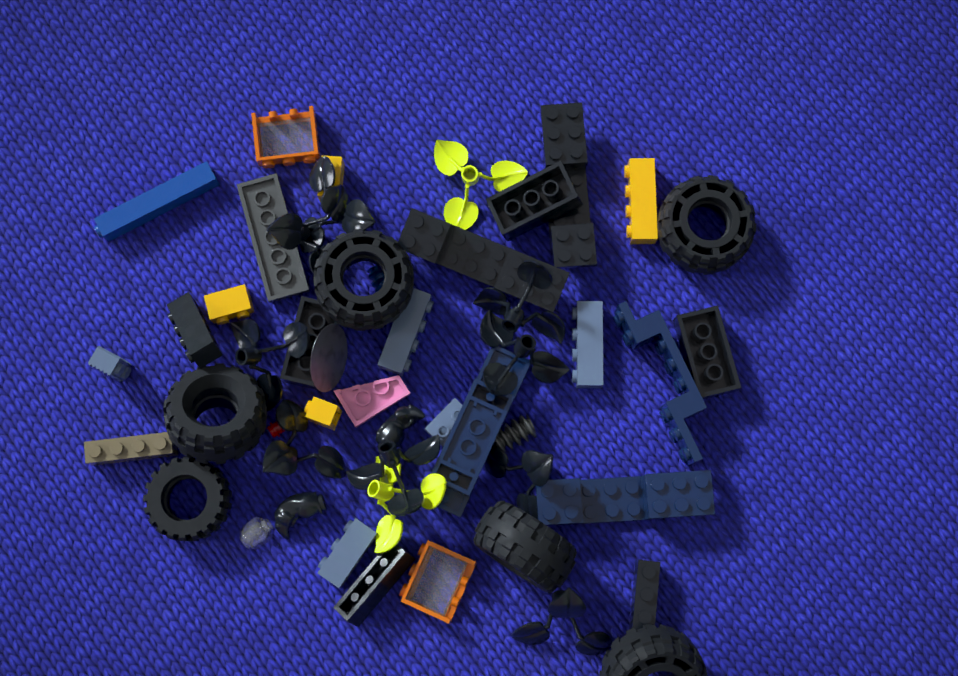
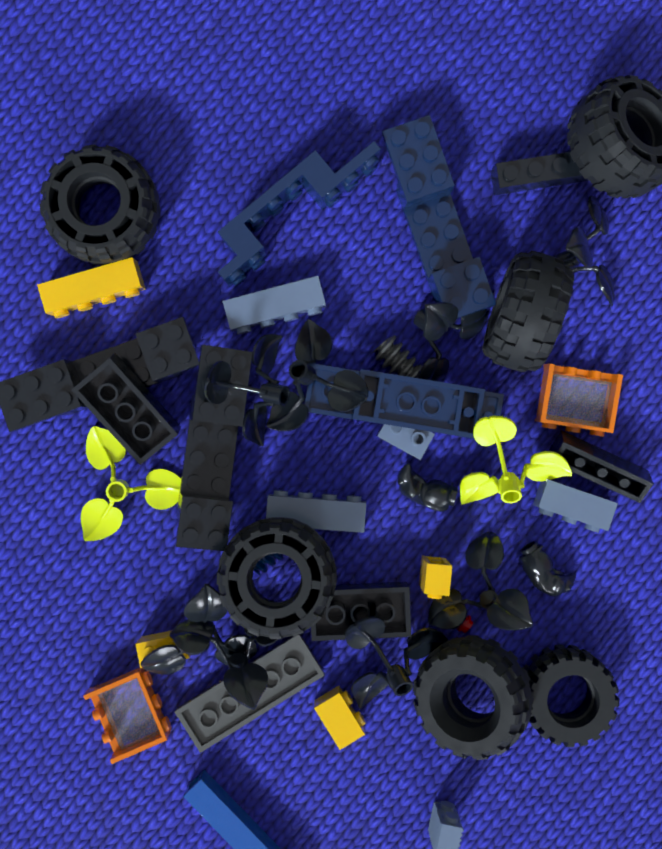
camera: 105 degrees left, 10 degrees up
(129, 449) = (533, 782): dark tan brick -> none
(194, 330) = (385, 749): black brick -> none
(256, 533) = (581, 609): clear head -> none
(328, 357) = (374, 589): flat silver sticker -> none
(370, 399) = (401, 528): bright pink wing -> none
(420, 454) = (451, 454): black plant -> none
(707, 352) = (247, 169): black brick -> none

